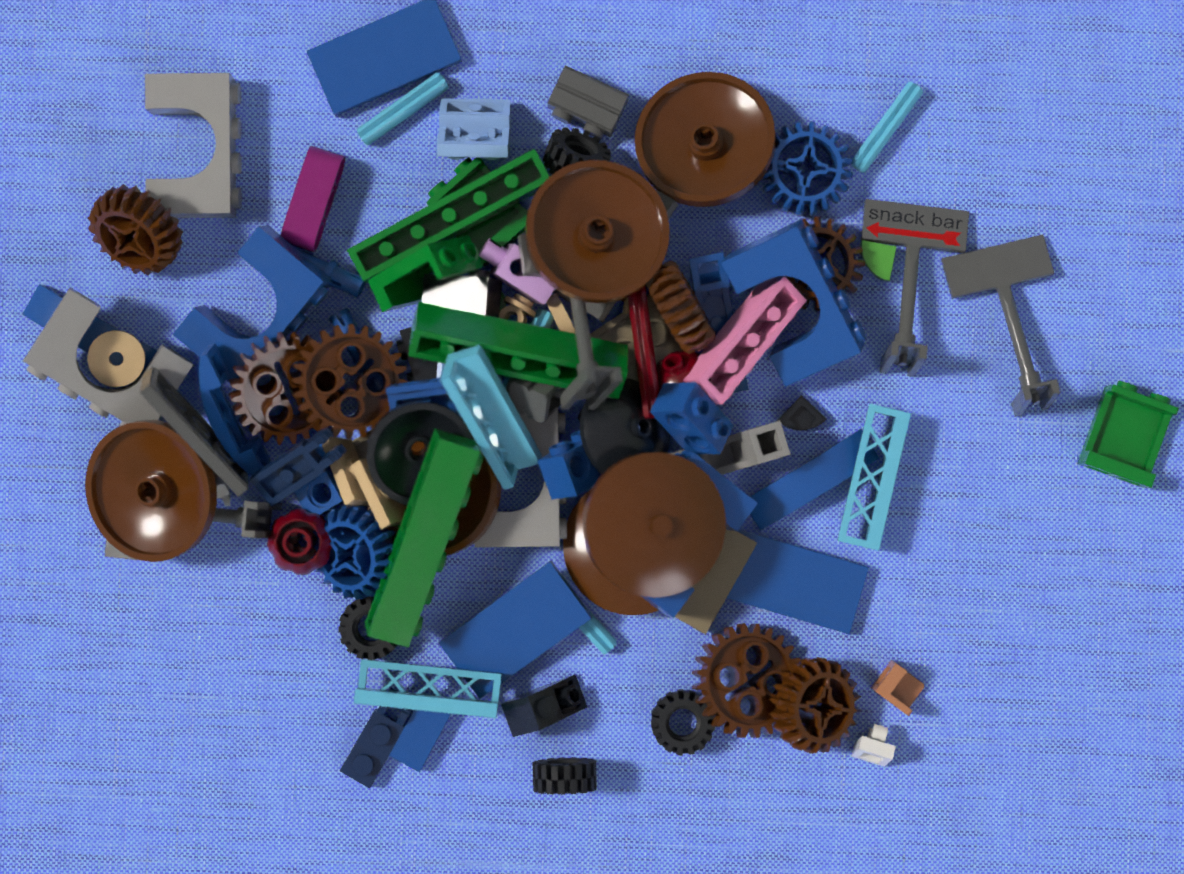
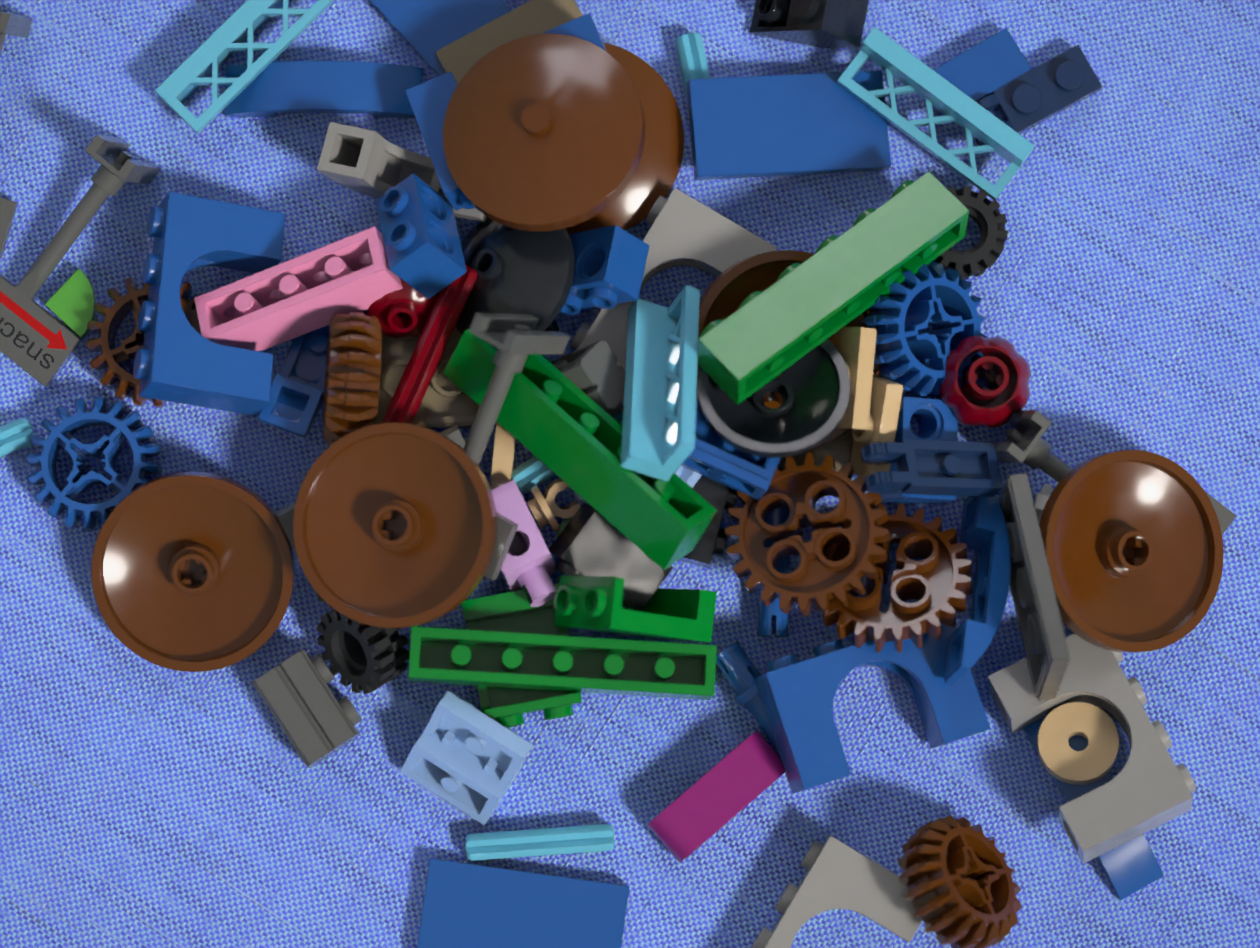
camera: 150 degrees left, 5 degrees down
(801, 416) = (287, 173): black tile -> none

